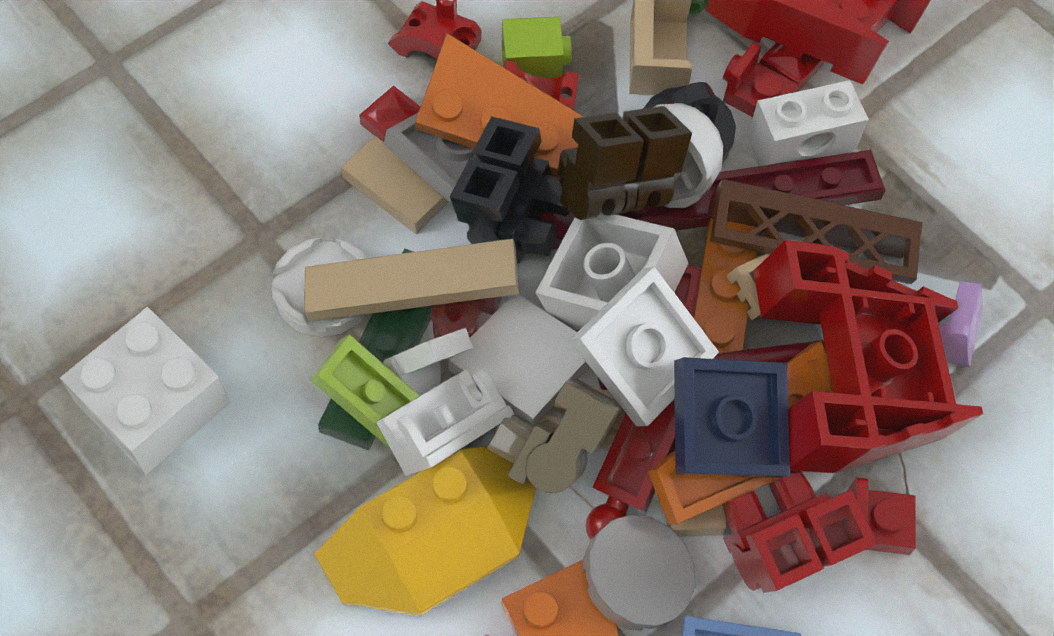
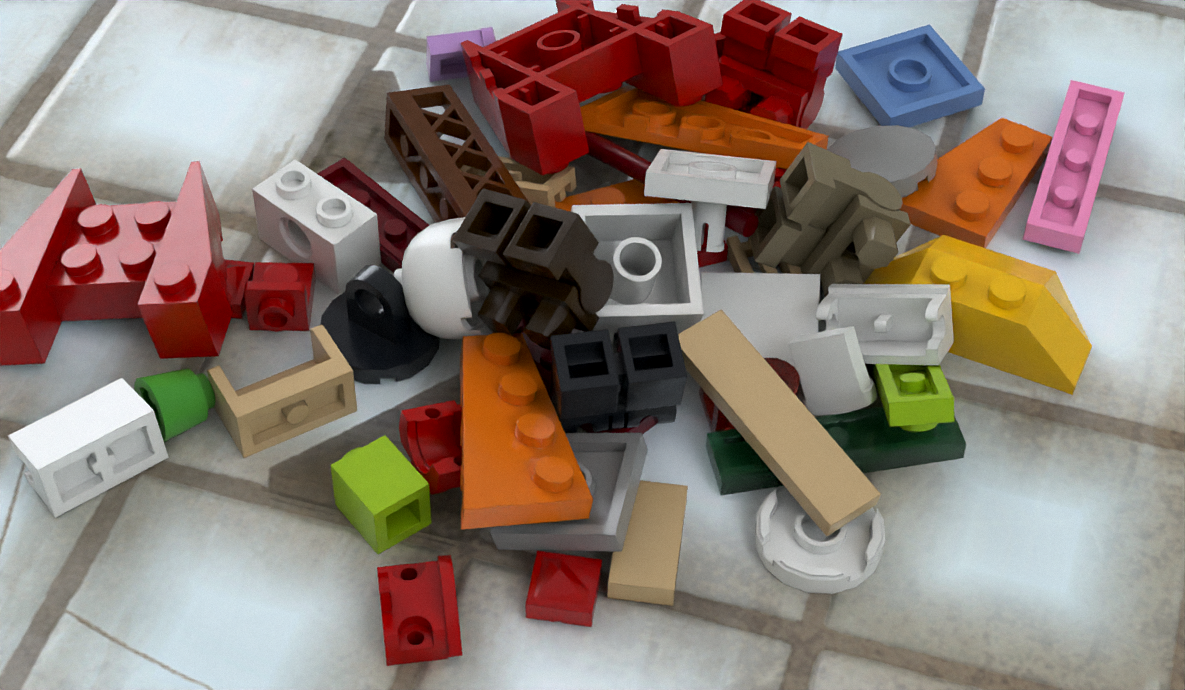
camera: 120 degrees left, 15 degrees down
(146, 390) = (1076, 587): white brick -> none
(731, 418) = (720, 113): dark blue plate -> none

